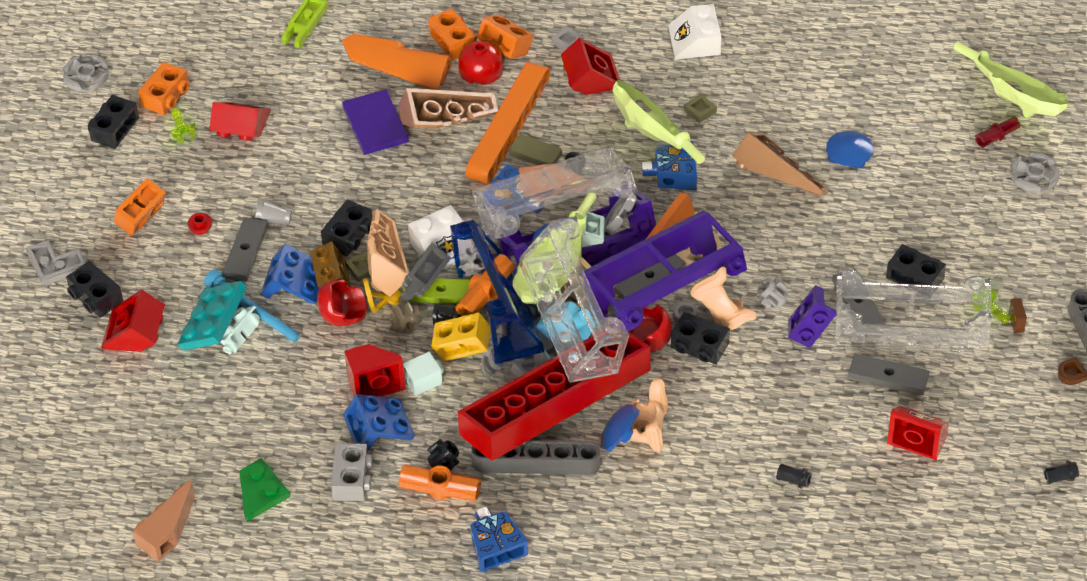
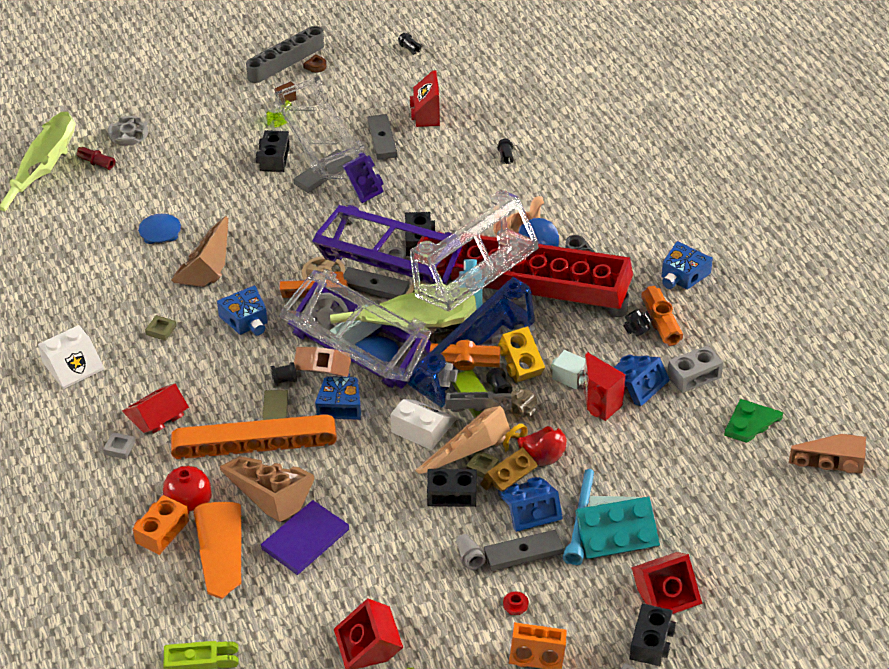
camera: 120 degrees left, 5 degrees down
(507, 36) = (146, 479): orange brick -> none
(655, 123) = (200, 345): yellowish green piece -> none
(724, 311) = (373, 232): light nougat hair -> none

